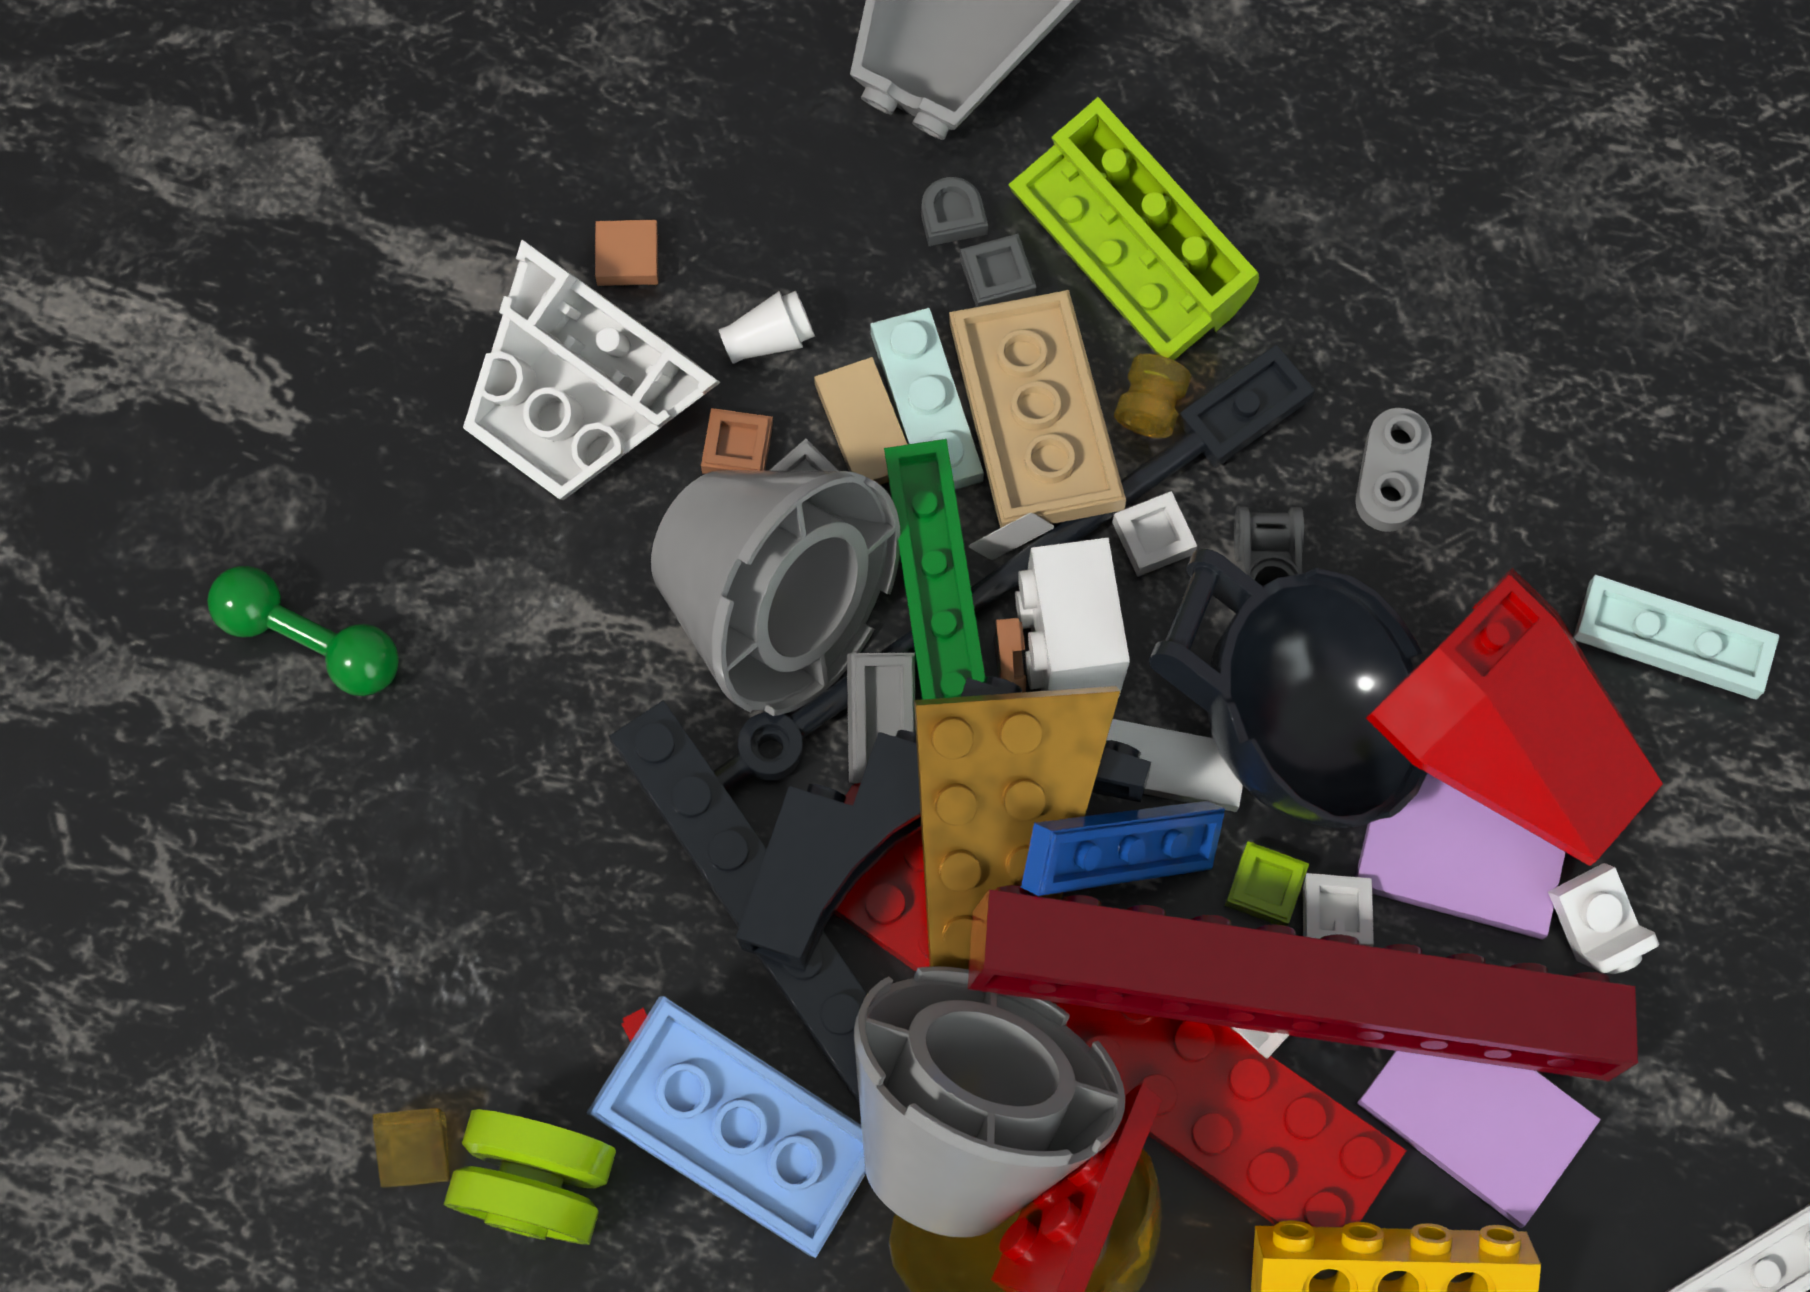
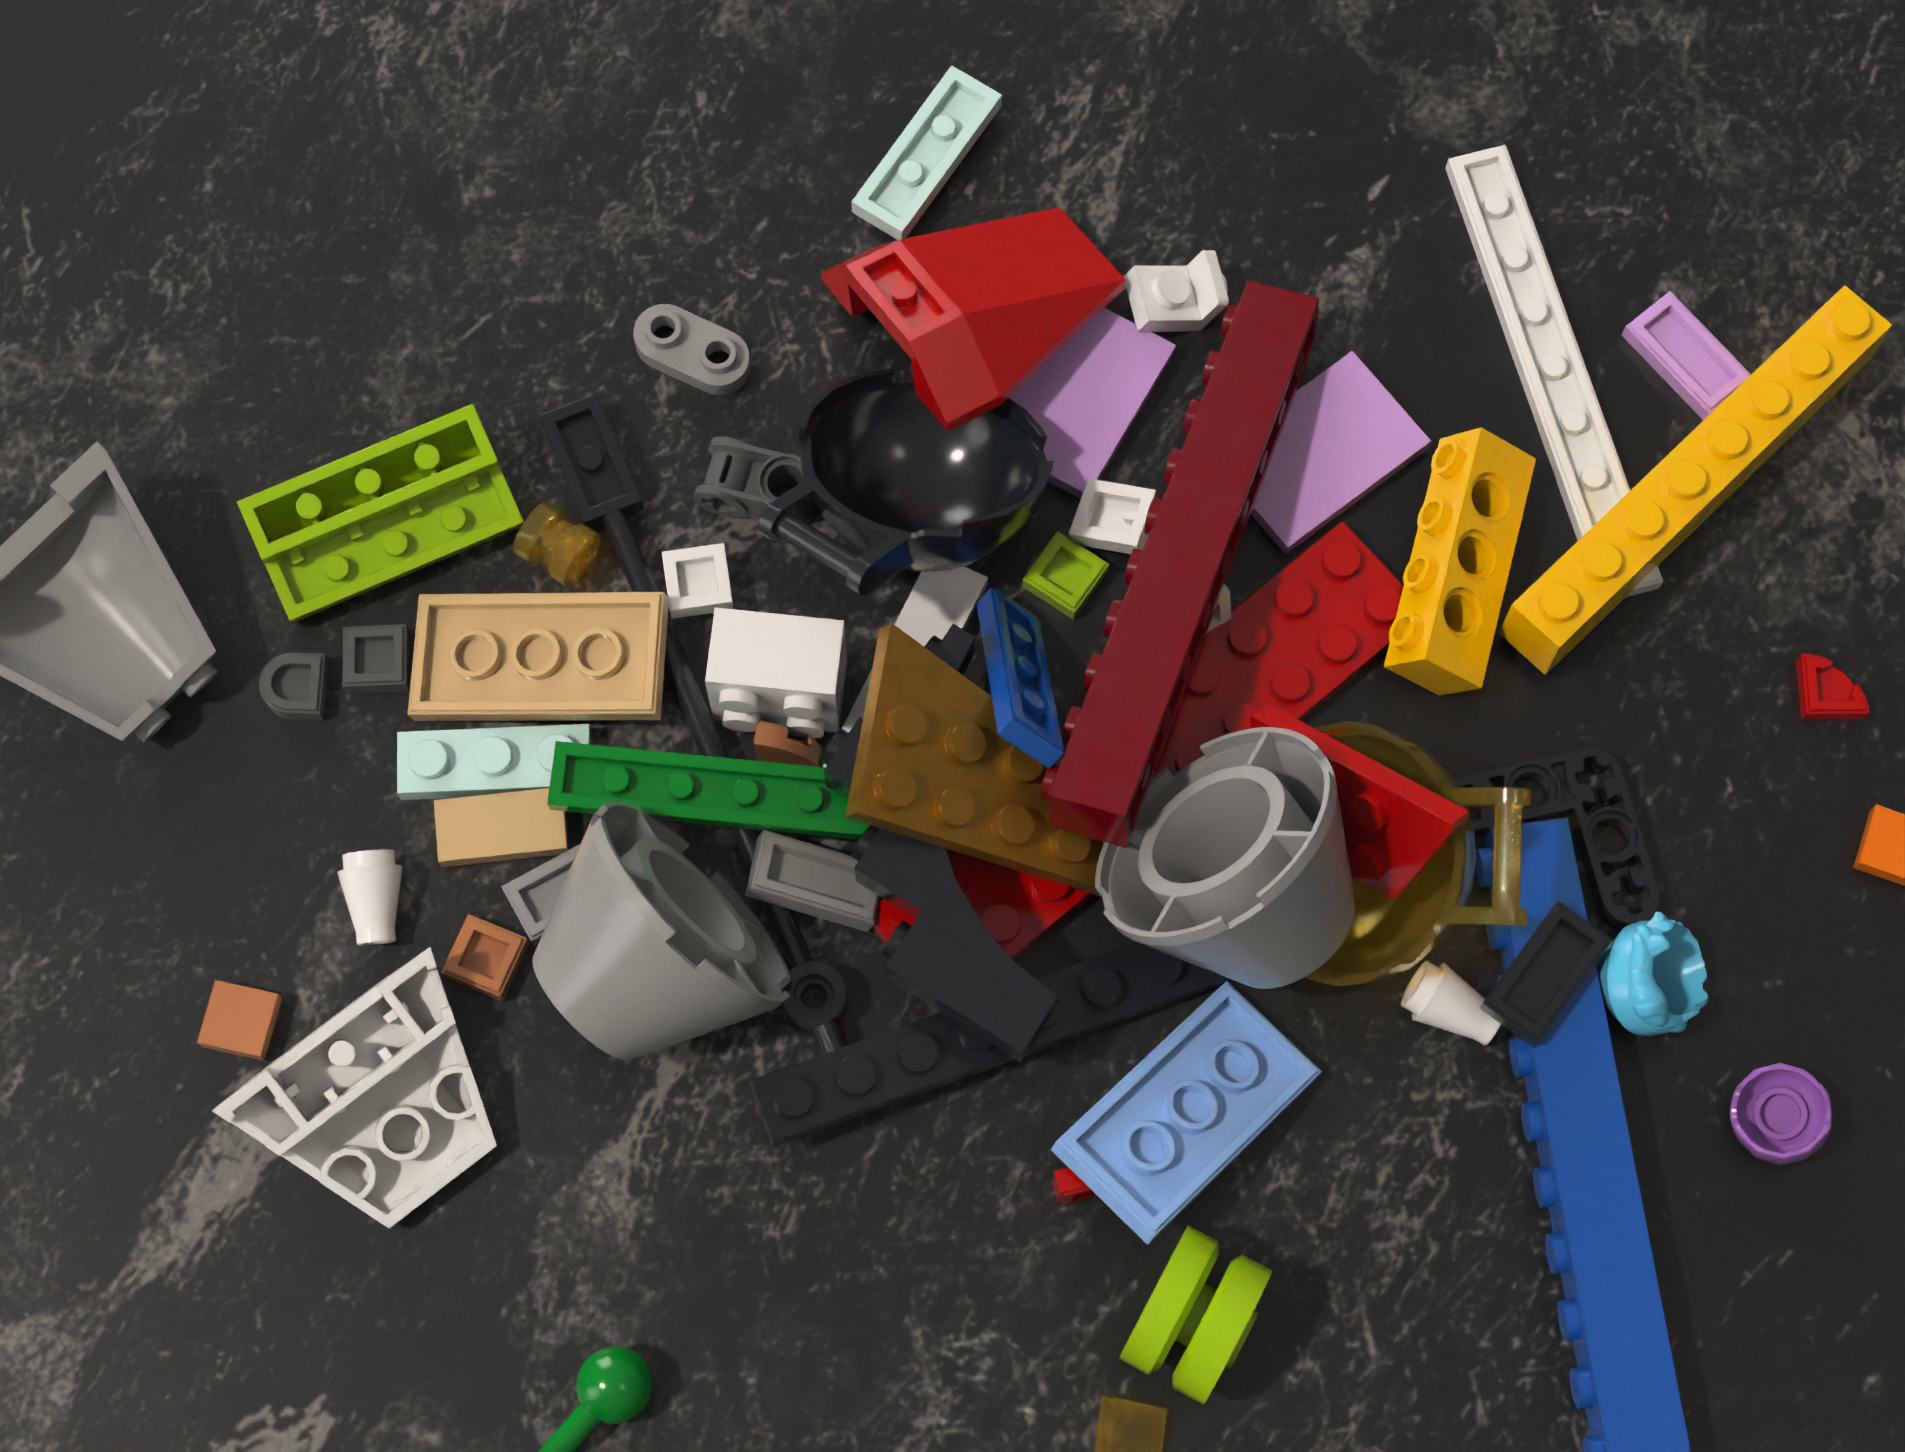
camera: 75 degrees left, 0 degrees up
(1011, 536) = (665, 711): white sticker -> none

